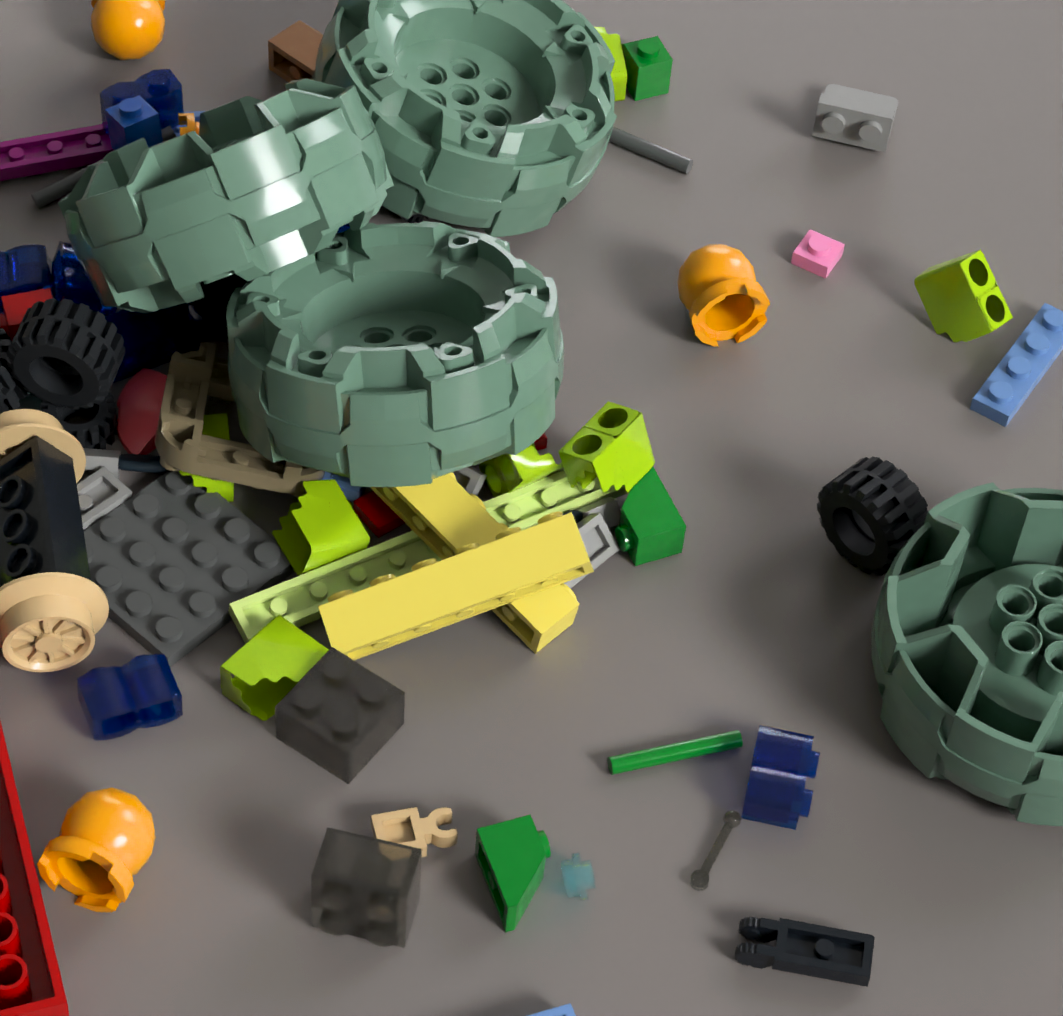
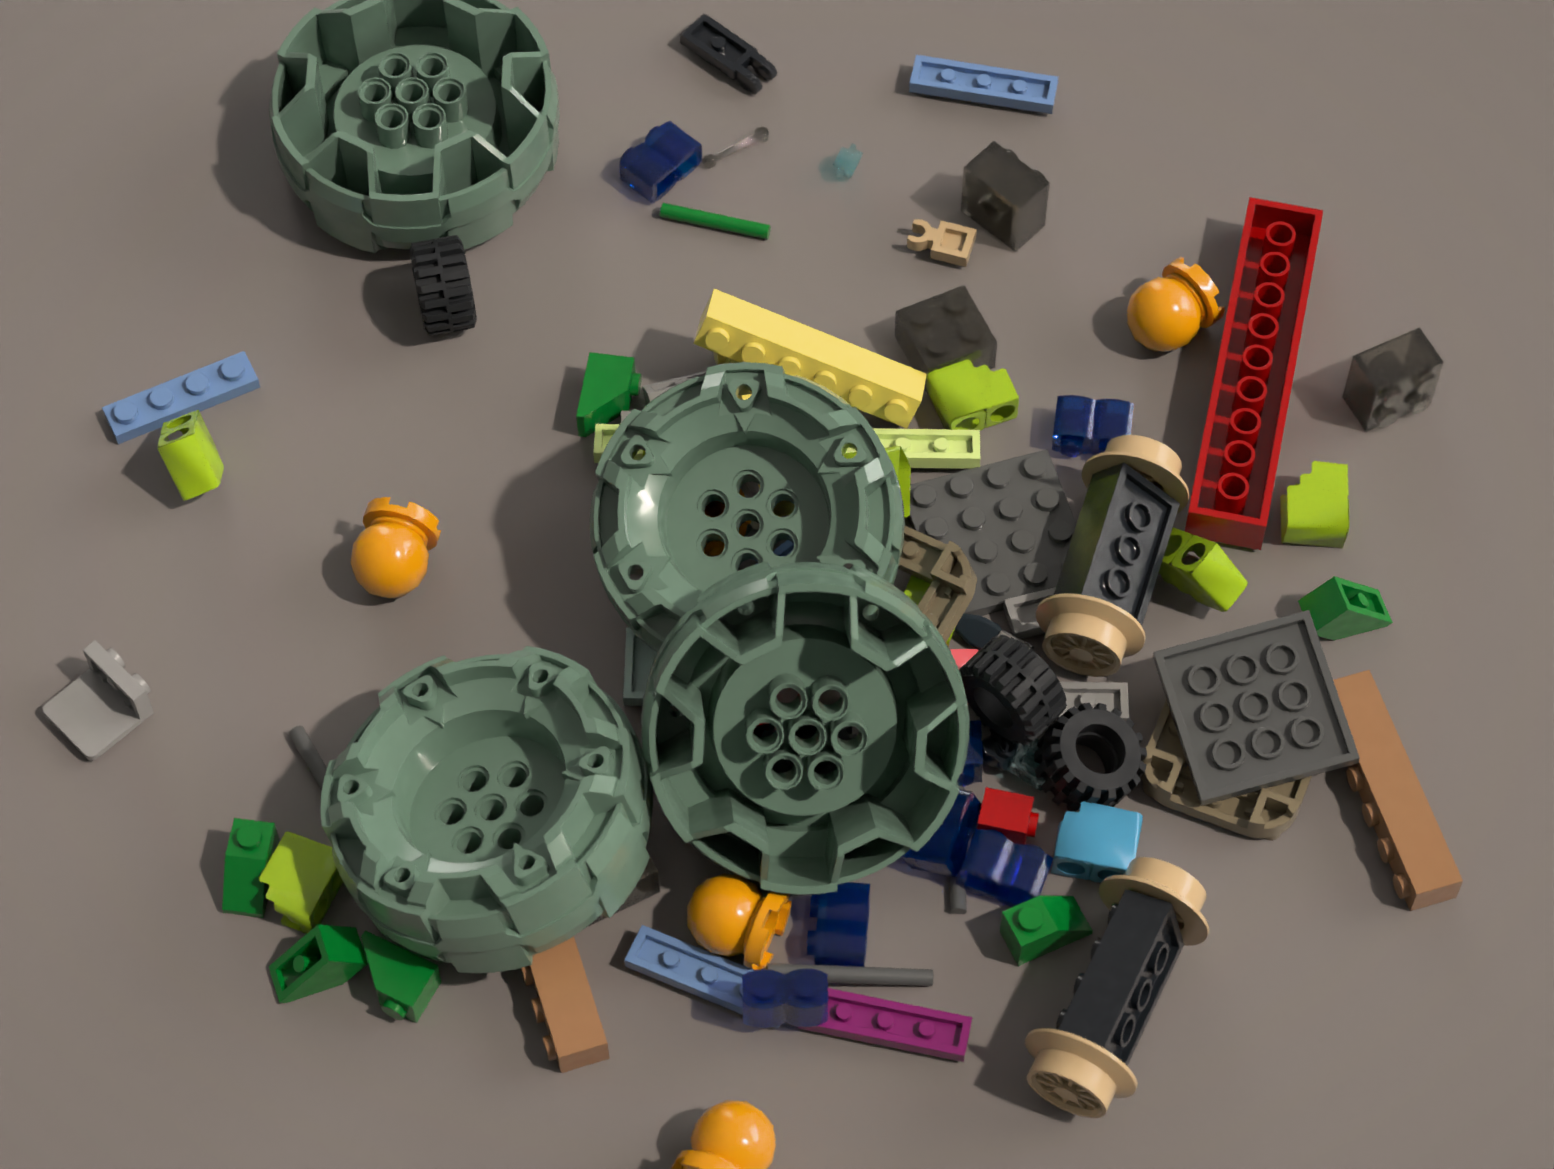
camera: 145 degrees left, 10 degrees up
(131, 121) = (815, 947): blue brick -> none
(512, 864) = (887, 184): green slope -> none
(609, 447) = (596, 434): lime piece -> none
(817, 253) = (260, 582): bright pink plate -> none

